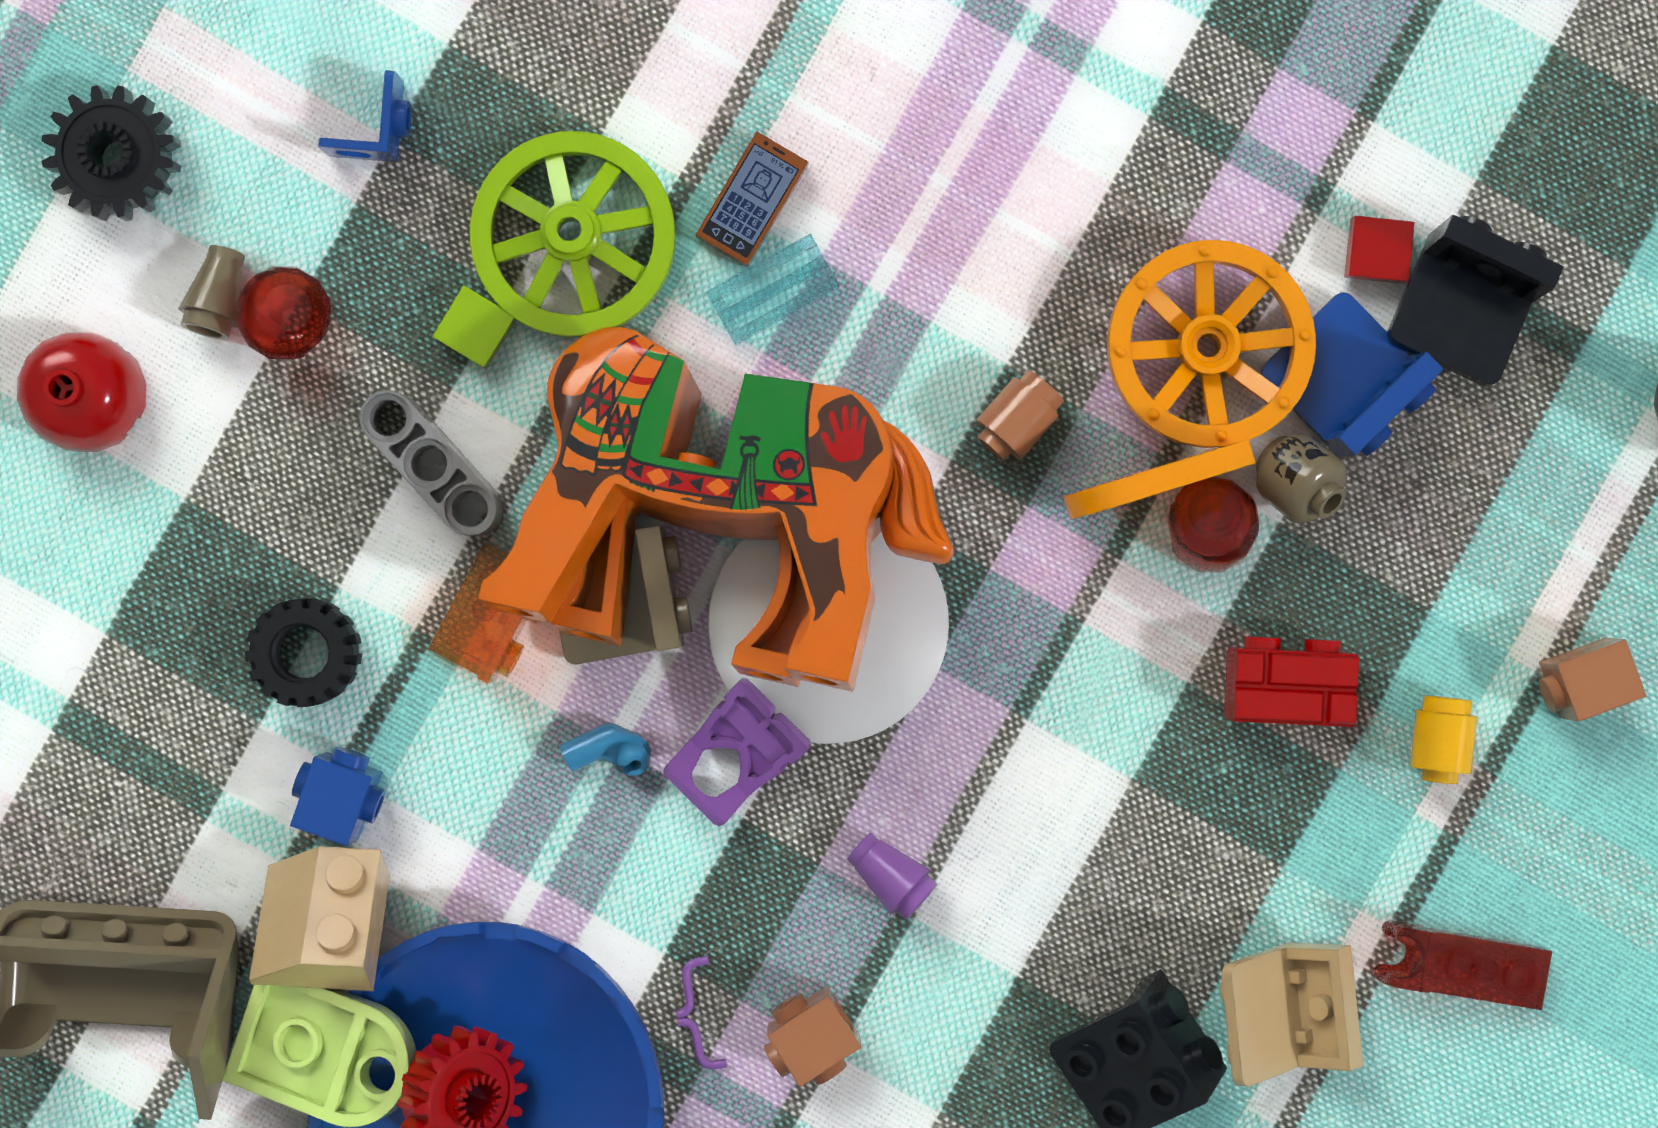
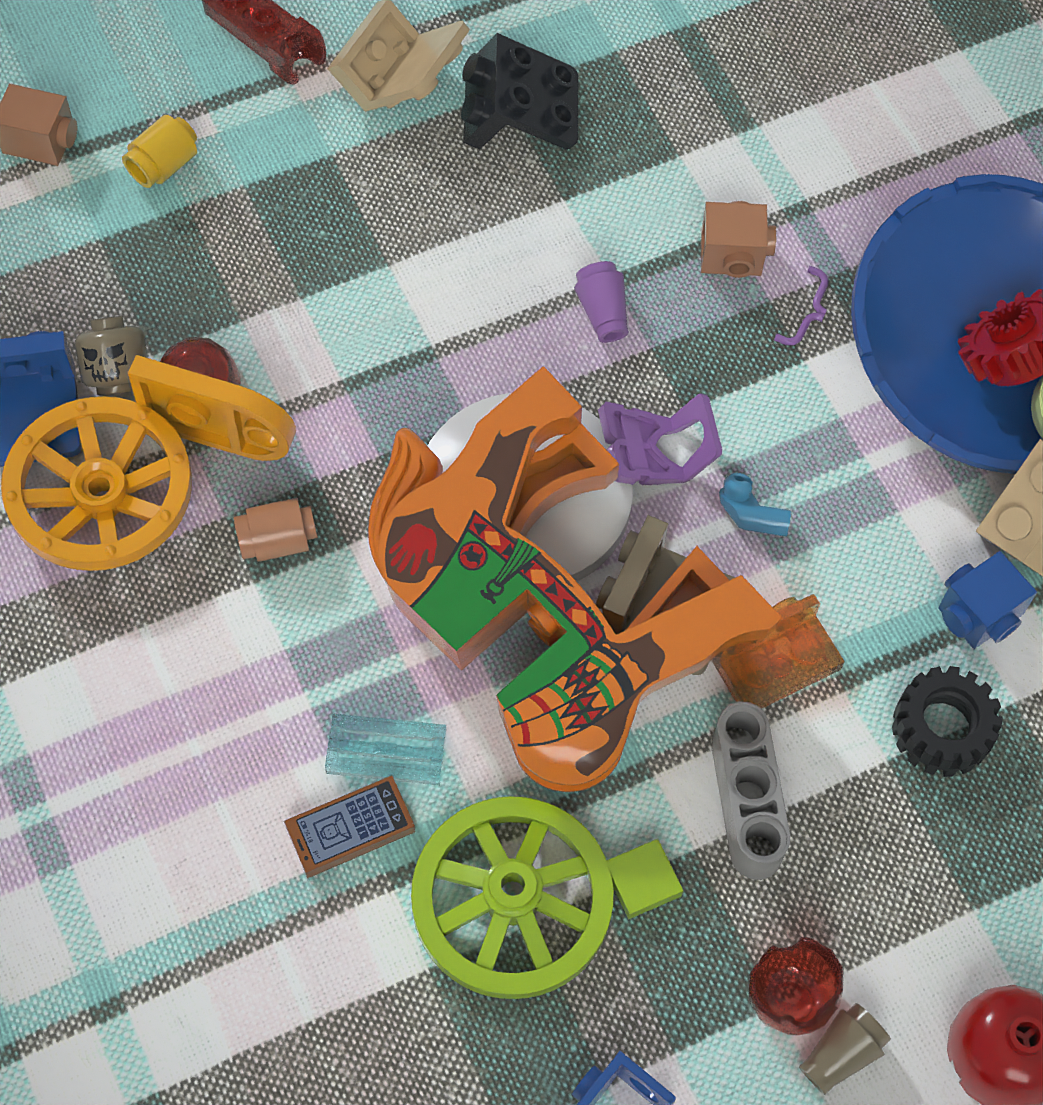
camera: 150 degrees left, 25 degrees down
(1291, 685) = (232, 243): red brick -> none

